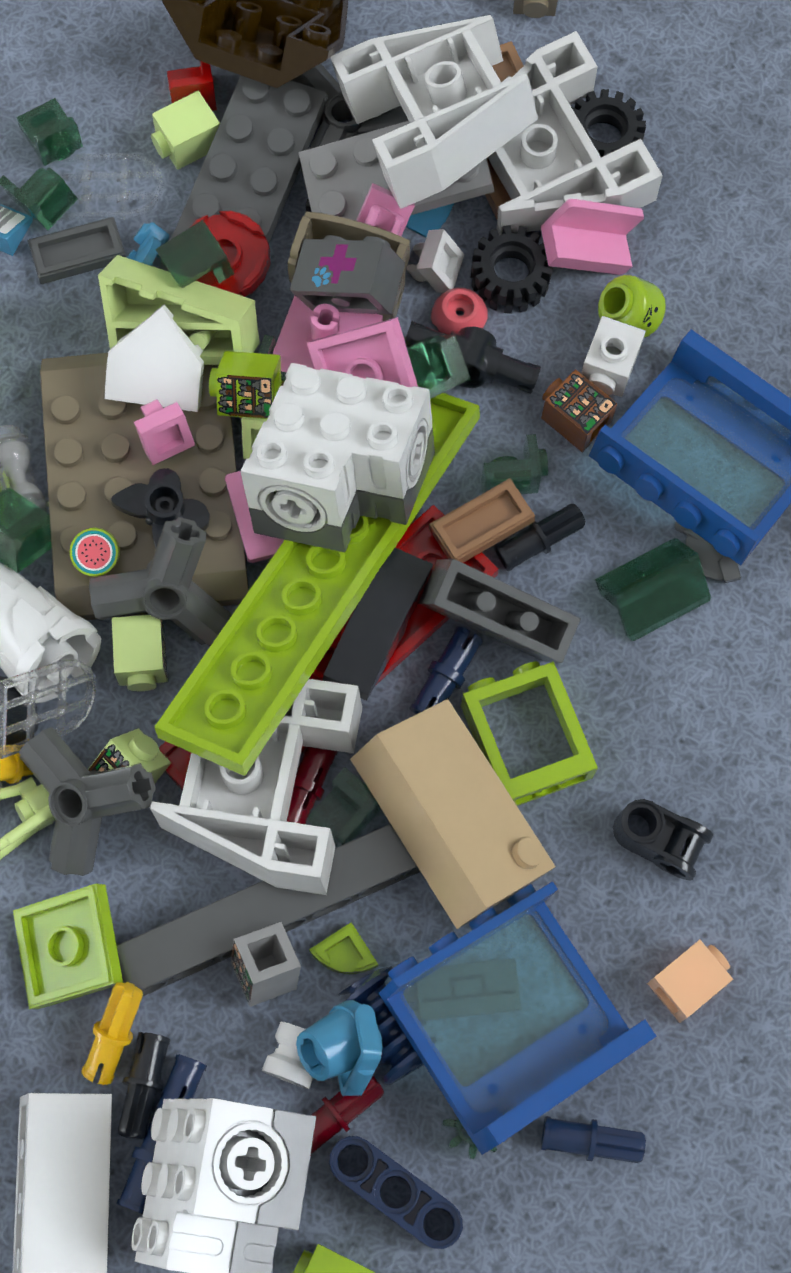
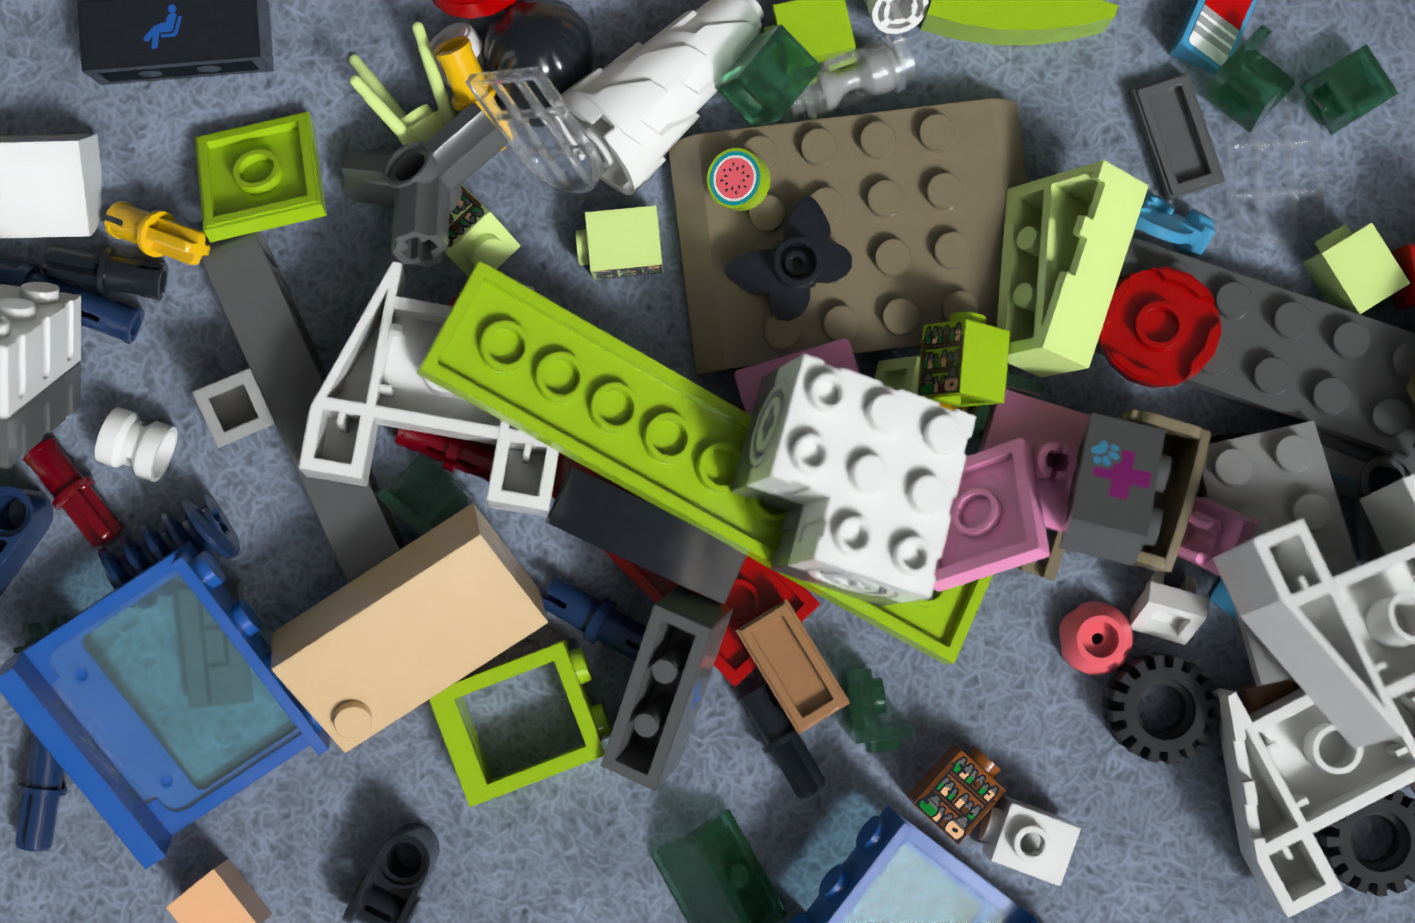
camera: 90 degrees right, 15 degrees up
(156, 364) = (987, 243): white slope -> none
(163, 431) = (898, 256): bright pink tile -> none
(165, 586) = (689, 267): dark grey piece -> none
(194, 255) = (1141, 286): clear green panel -> none
(344, 952) = (262, 500): lime tile -> none
(344, 1046) = (127, 499): dark azure piece -> none
(438, 363) = (1000, 606): clear green panel -> none
(483, 358) = (1029, 653): black pin -> none
(590, 236) = (1202, 813): bright pink panel -> none
(633, 303) = (1105, 869): lime head -> none

